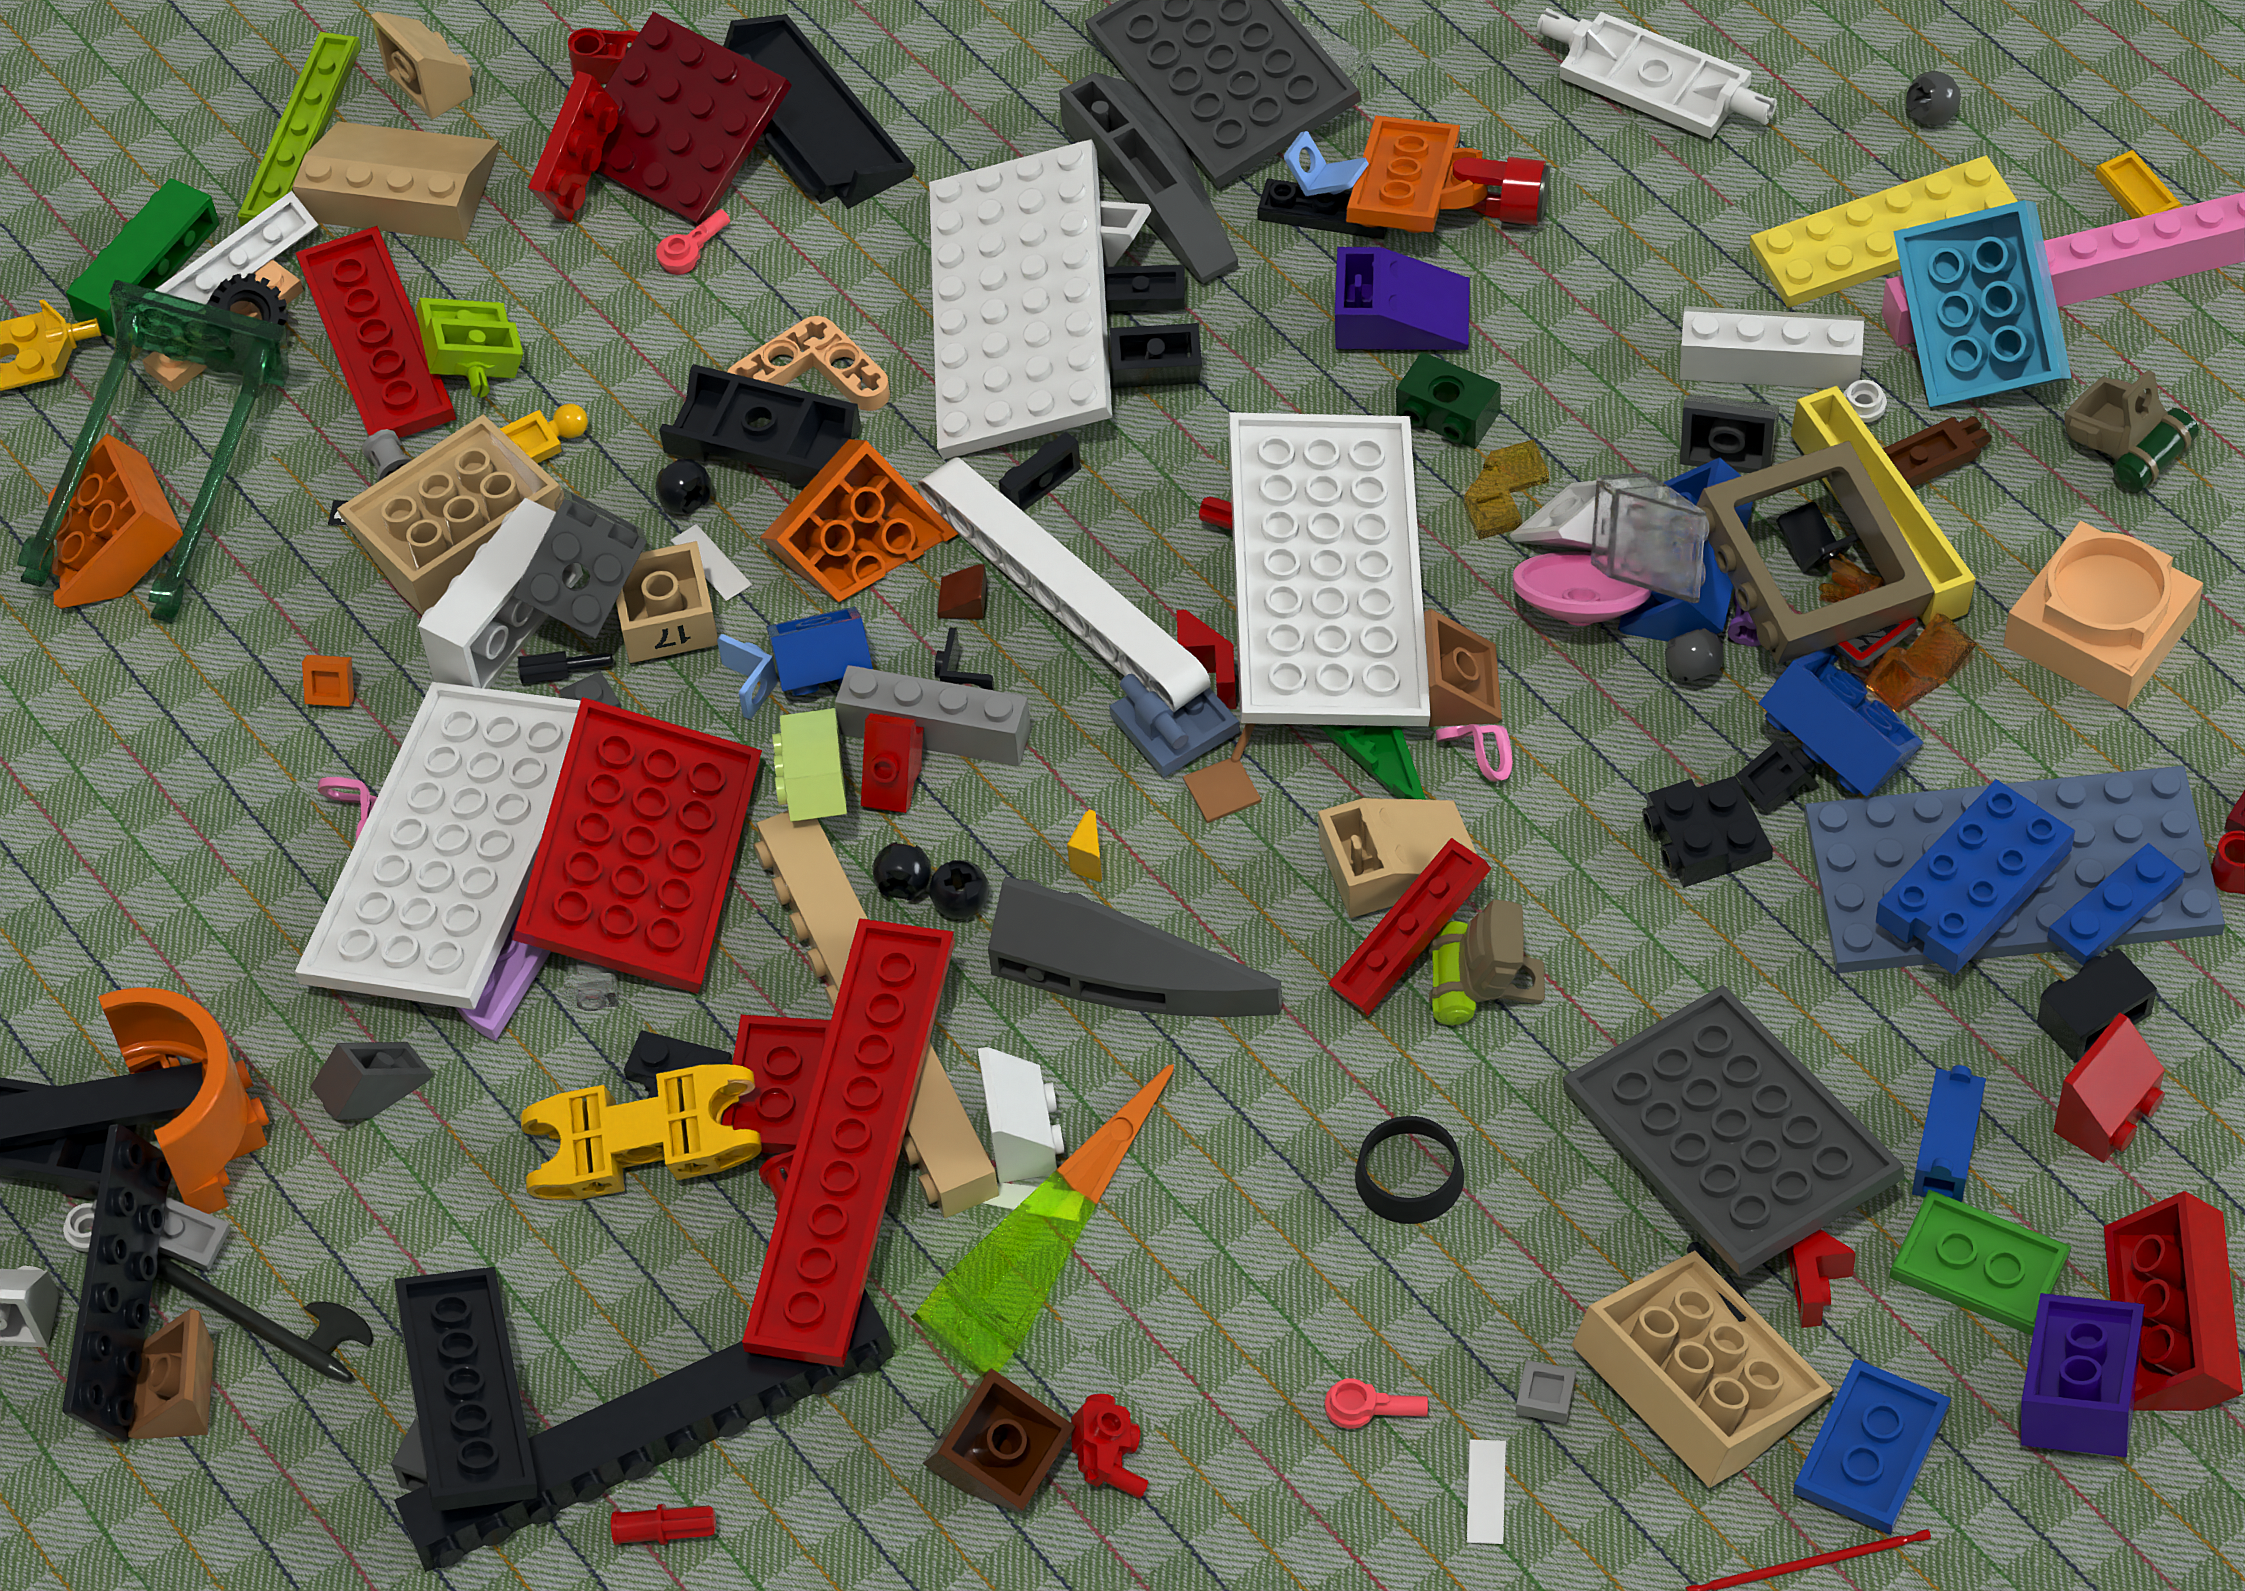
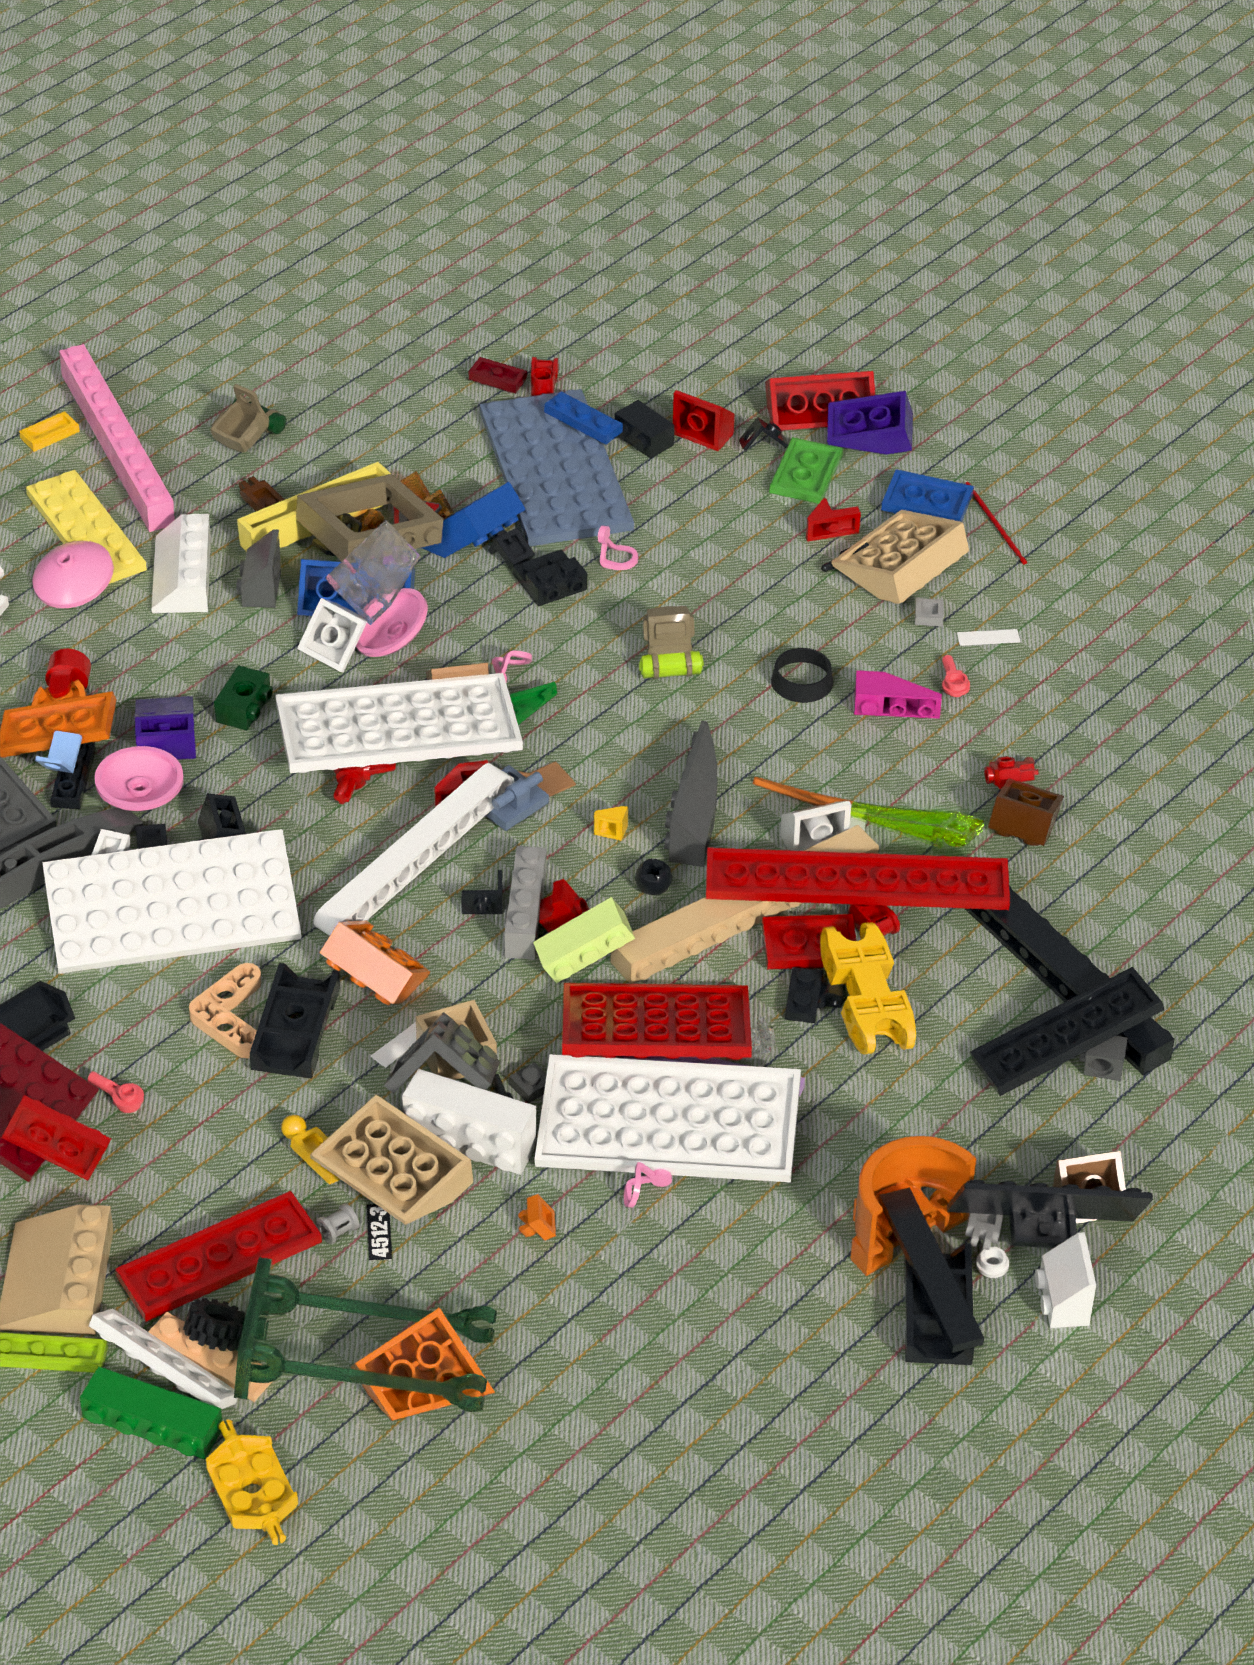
camera: 105 degrees left, 10 degrees down
(335, 1325) = (1024, 1128): pearl dark grey piece -> none
(368, 1078) = (854, 1133): dark grey slope -> none
(469, 340) = (231, 1188): lime plate -> none
(663, 1524) = (1113, 948): red axle -> none
(683, 486) = (350, 1053): black piece -> none
(755, 664) = (500, 992): light blue bracket -> none
(818, 649) = (476, 965): blue slope -> none
(901, 871) = (646, 902): black piece -> none
(963, 593) = (419, 906): copper slope -> none
(1041, 472) = (318, 875): black plate -> none
(1270, 263) = (139, 778): none -> bright pink dish
(1330, 1285) = (892, 696): none -> dark pink slope
(1384, 845) = (597, 693): tan slope -> none
(1409, 926) = (650, 674): red plate -> none
(1504, 472) = (292, 676): clear yellow tile -> none
(1694, 655) = (432, 581): dark grey piece -> none
(1733, 1129) = (757, 545): dark grey plate -> none
(1762, 206) = (72, 574): none -> bright pink dish
(1775, 897) = (603, 537): none -> bright pink piece
(1866, 399) = (226, 529): white plate -> none
(1949, 1133) = (736, 476): blue brick -> none
(1975, 876) = (583, 457): blue piece -> none
(1982, 304) = (171, 457): medium azure slope -> none
(2071, 1202) = (758, 426): none -> black bracket
(2104, 613) = (382, 426): light nougat container -> none

